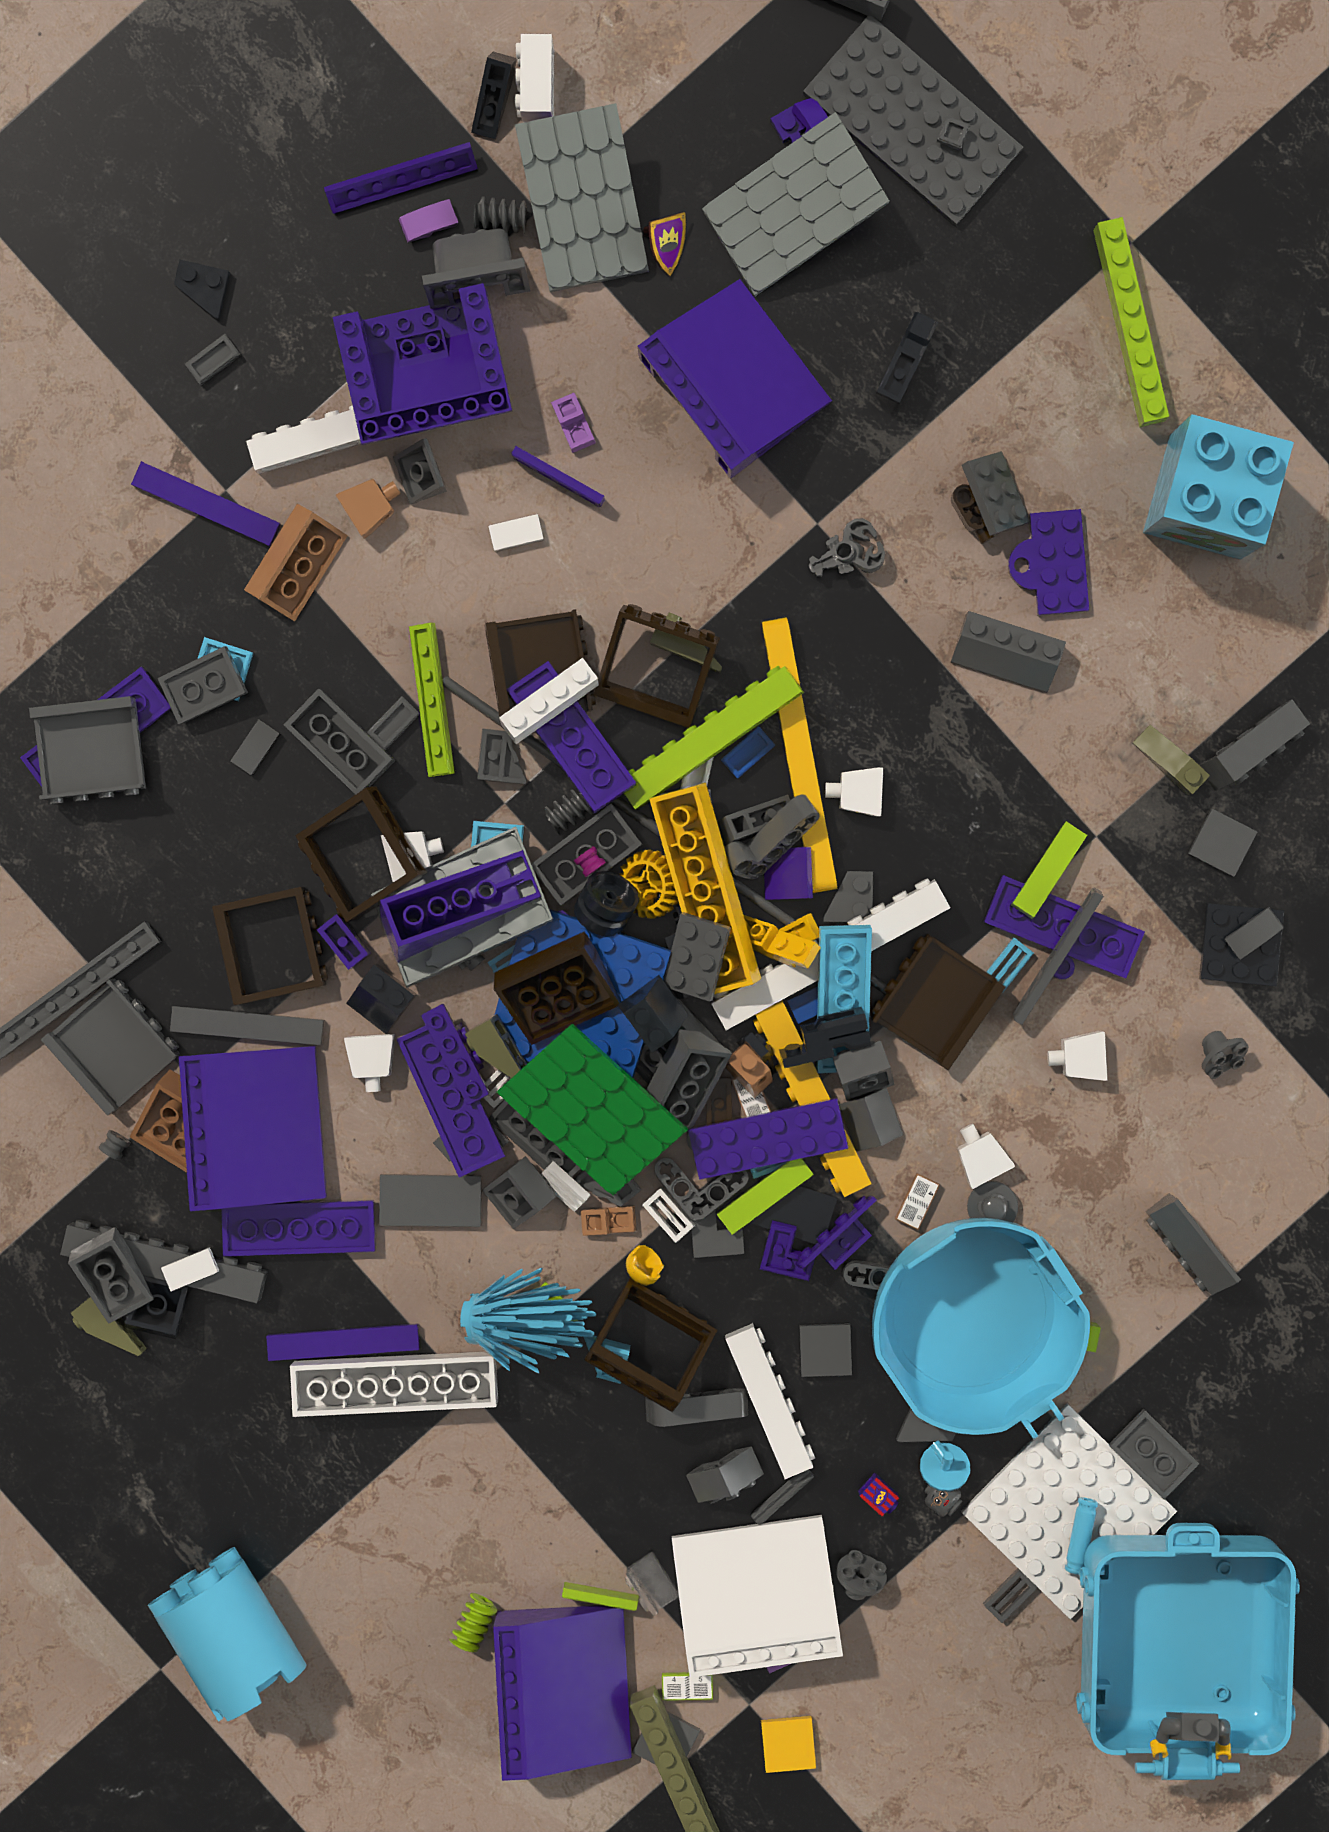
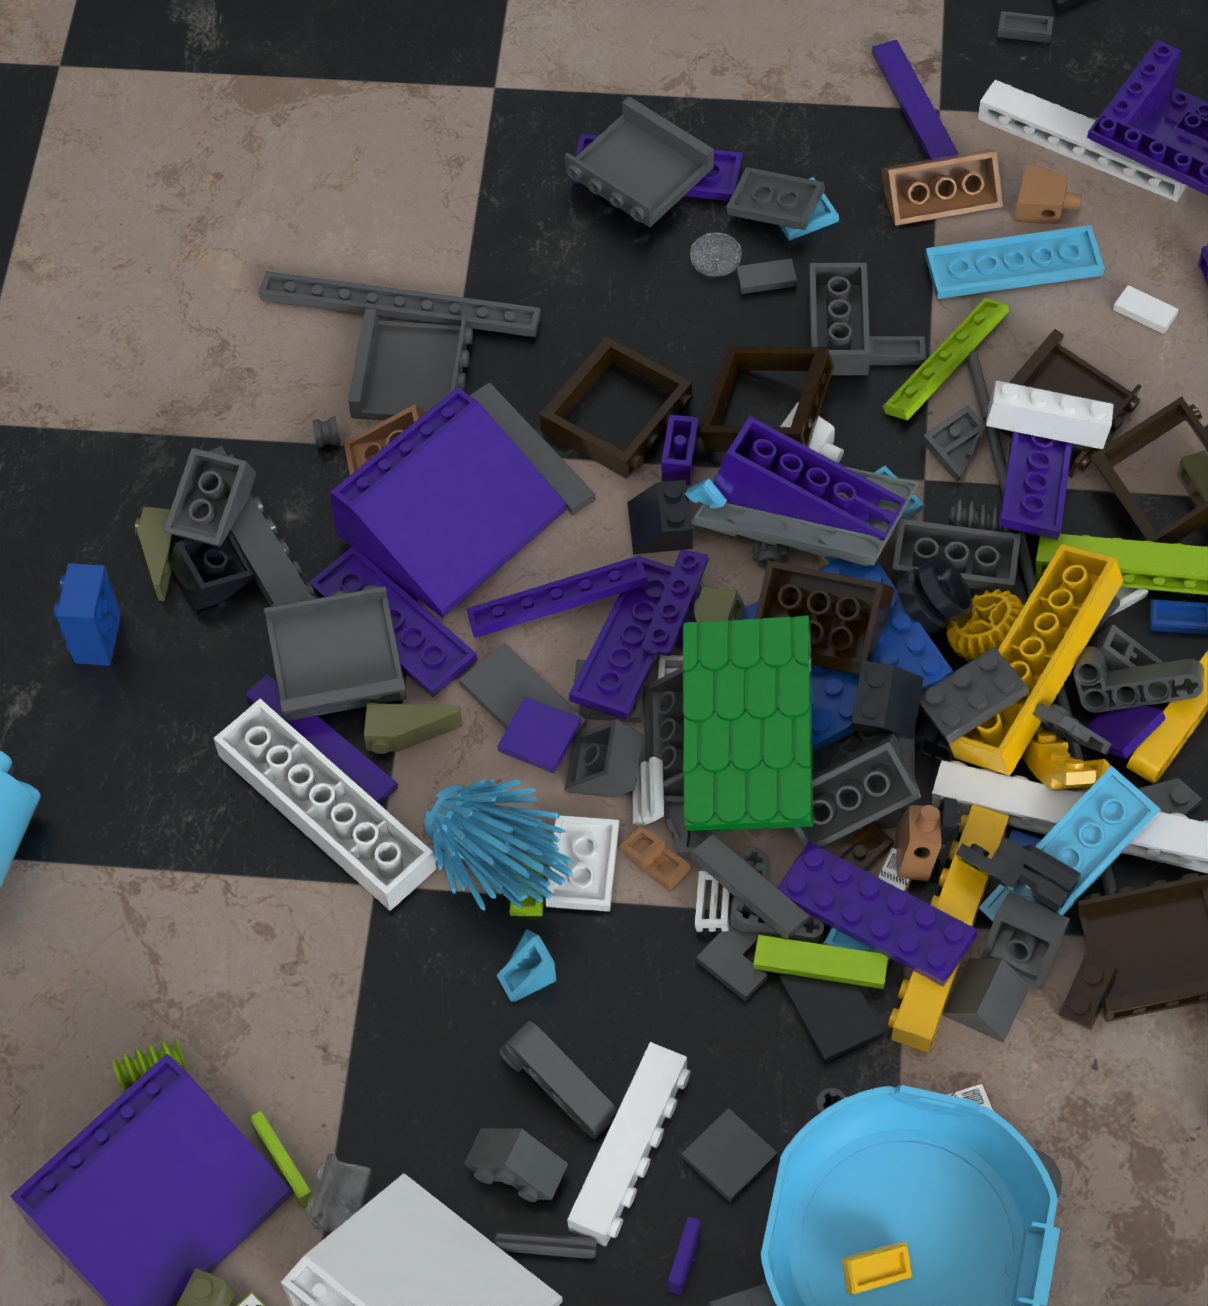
camera: 50 degrees right, 30 degrees down
(129, 1419) = (88, 614): none -> blue brick
(190, 1269) = (273, 558): white tile -> none
(206, 763) = (715, 254): none -> clear wheel
(298, 1291) = (334, 653): none -> dark grey panel
(371, 1058) = (601, 545): white torso -> none
(380, 1117) = (557, 596): none -> dark purple plate
(380, 1291) = (405, 725): none -> olive slope
(399, 964) = (706, 493): none -> medium azure tile
(400, 578) = (1014, 262): none -> medium azure plate
(419, 472) = (1113, 208): dark grey slope -> none
(466, 1215) = (539, 735): none -> dark purple tile
(573, 1264) = (592, 851): none -> white plate
(589, 861) = (956, 549): magenta wheel -> none
(634, 1376) = (539, 982): dark brown window -> none
(644, 1265) = (645, 917): yellow hair -> none
(684, 1193) = (749, 886): none -> dark grey tile
(764, 914) = (1062, 724): none -> dark grey wing
(779, 1256) = (775, 1032): dark purple tile -> none
(842, 1240) = (850, 1064): dark purple bracket -> none
(860, 1430) = (684, 1256): none -> dark purple tile
(923, 1063) = (1088, 992): none -> dark brown plate
(970, 1346) = (876, 1267): none -> yellow tile
(982, 1157) = (1063, 1125): white torso -> none

